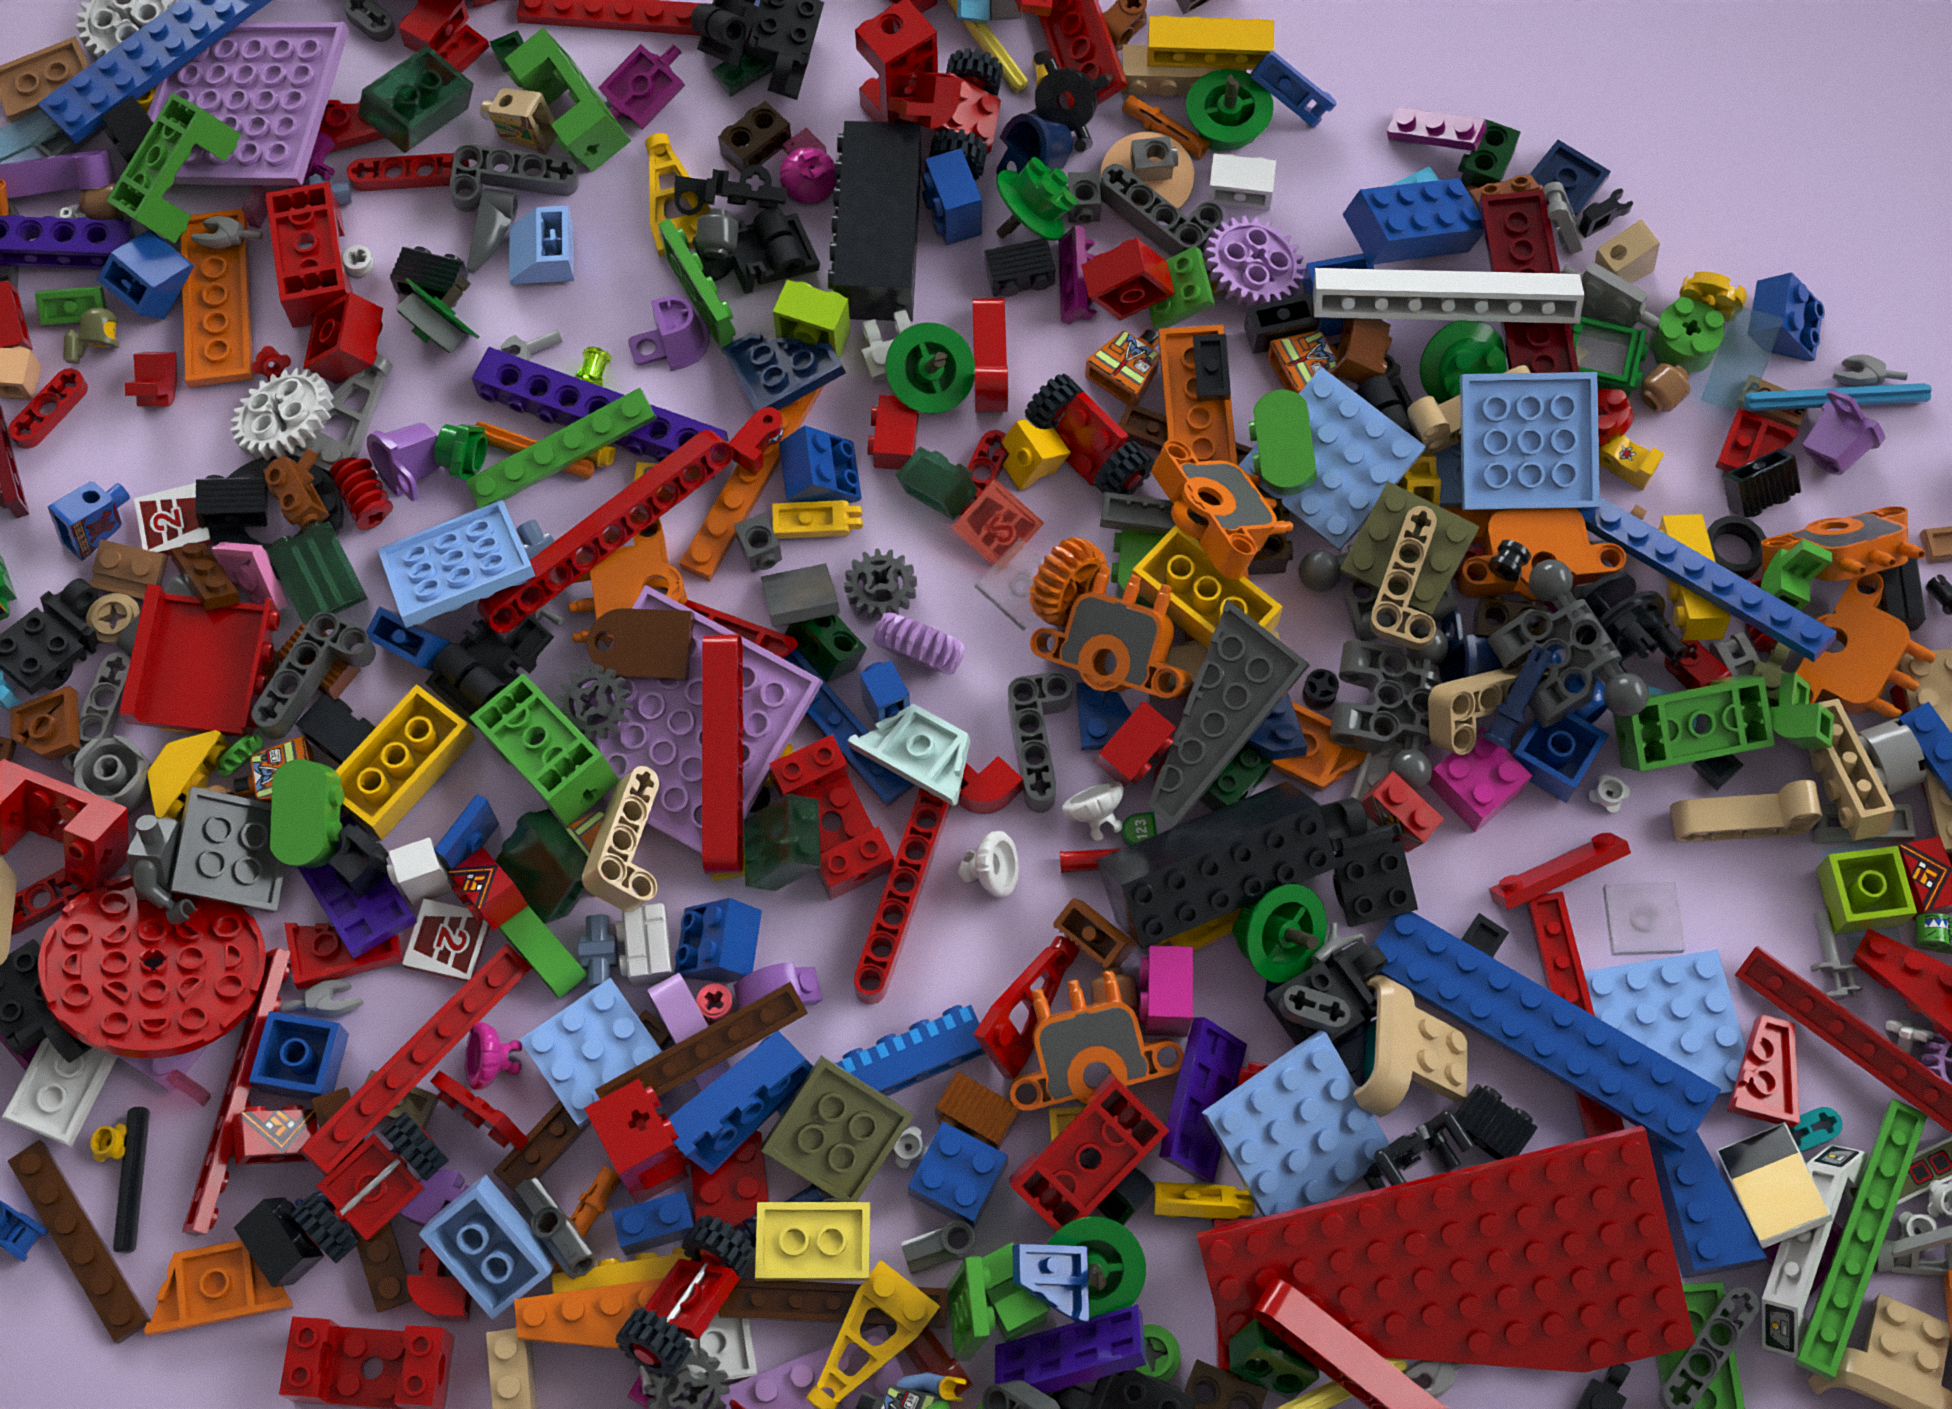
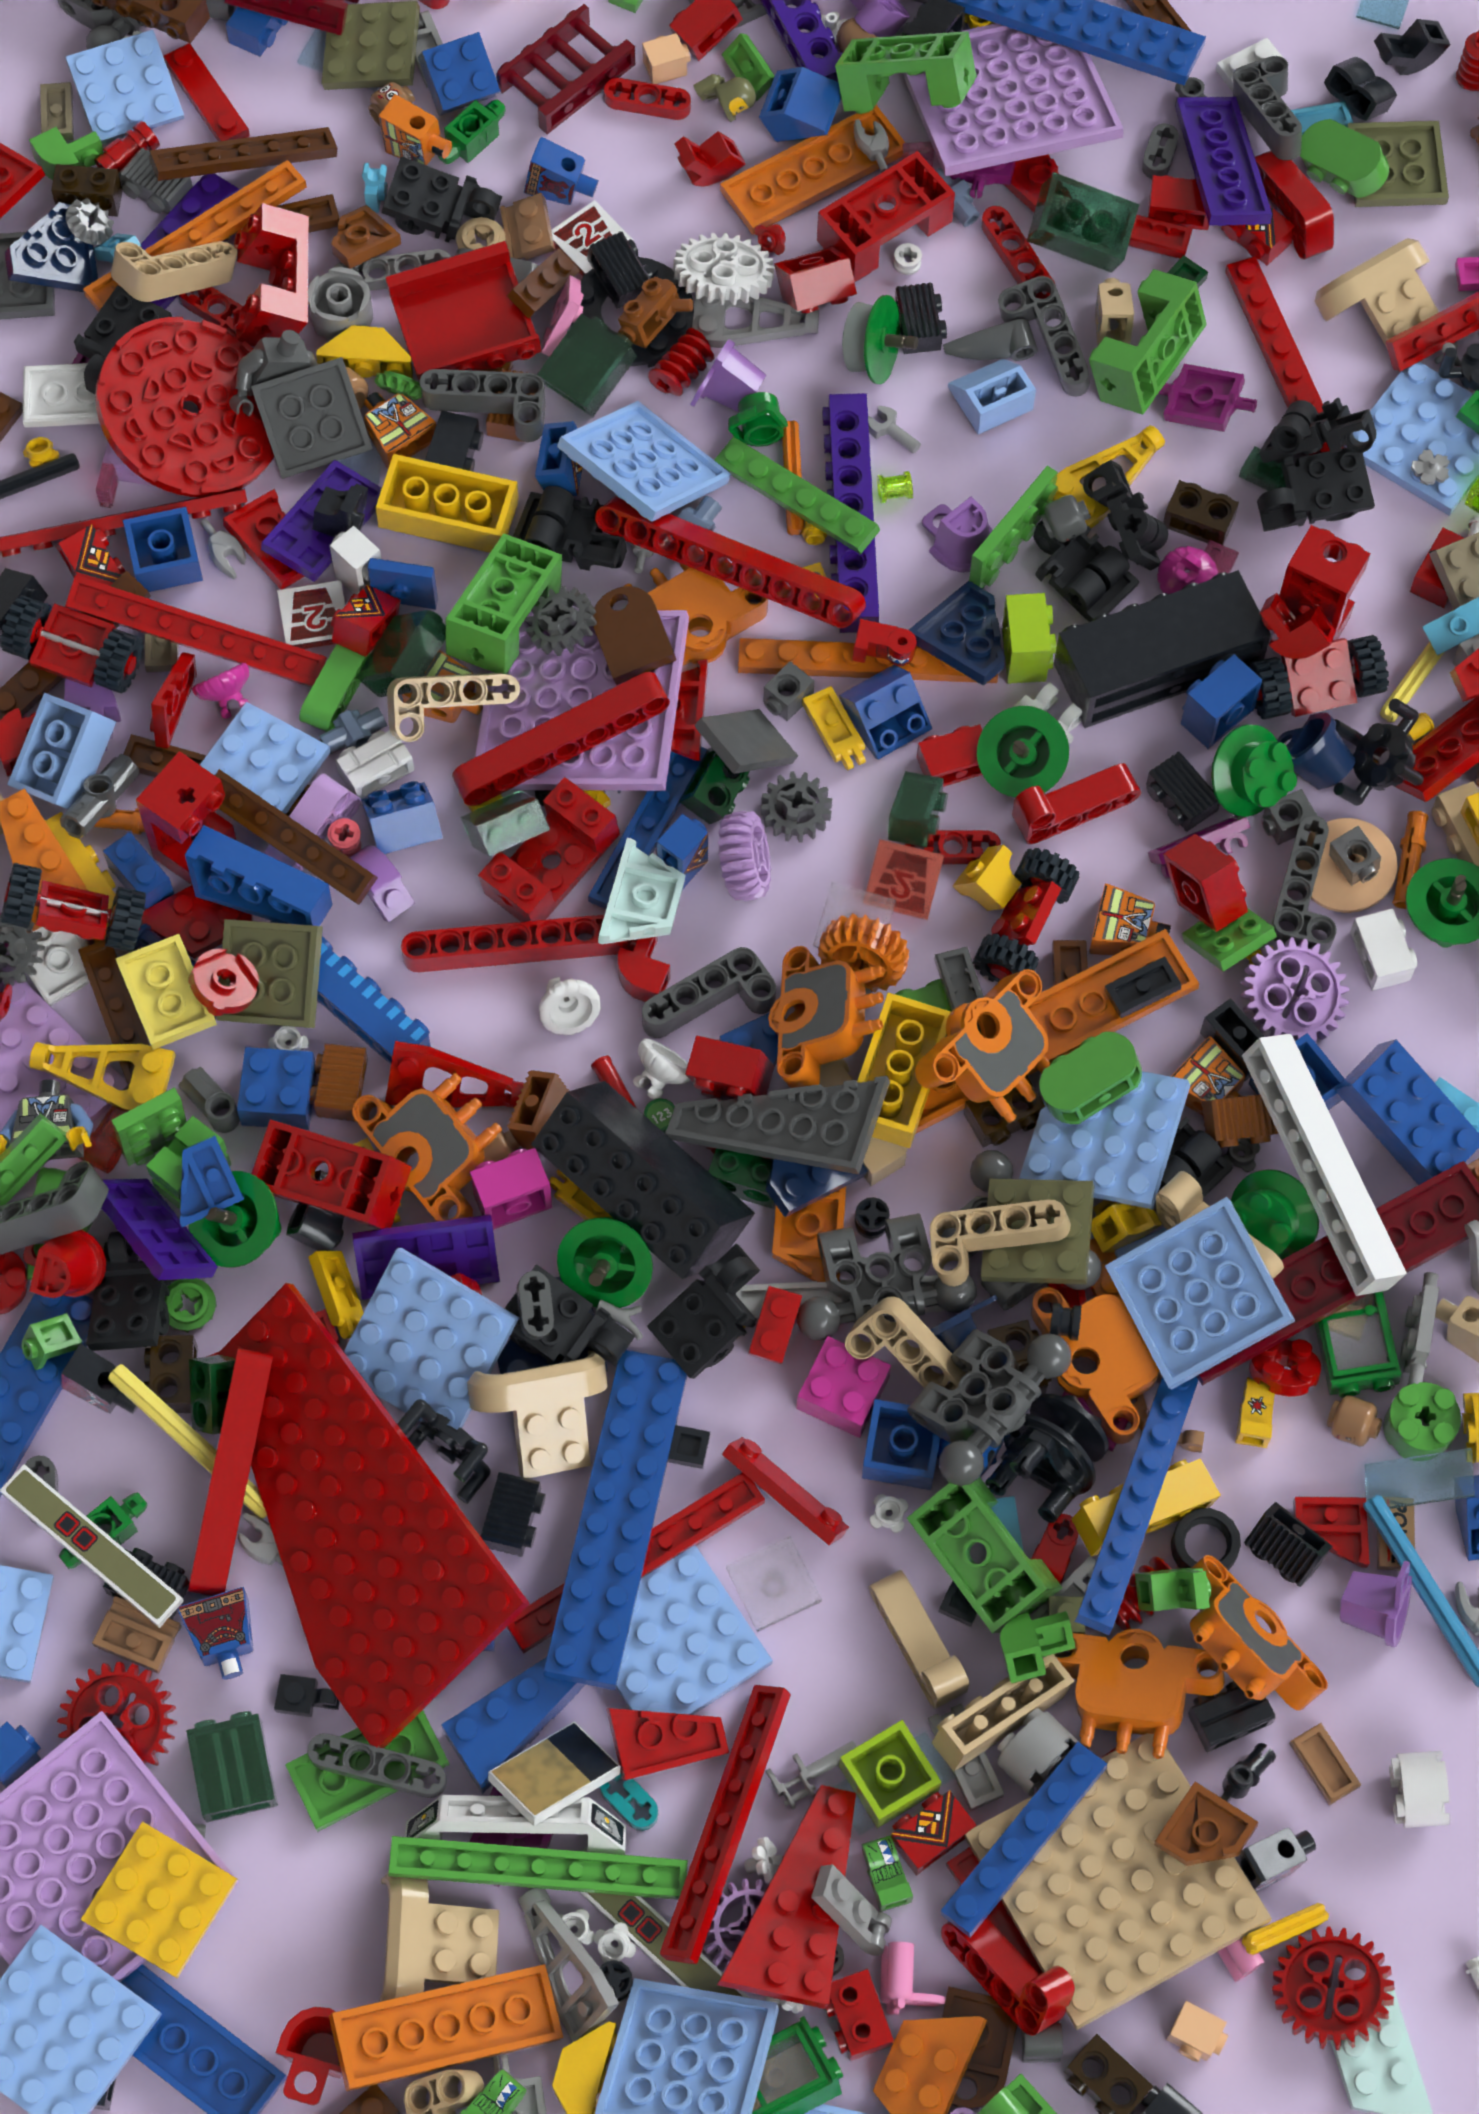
camera: 65 degrees right, 0 degrees up
(305, 813) = (362, 451): bright green brick -> none
(838, 1194) = (215, 996): none -> plate
(1511, 712) = (904, 1373): dark blue pin -> none

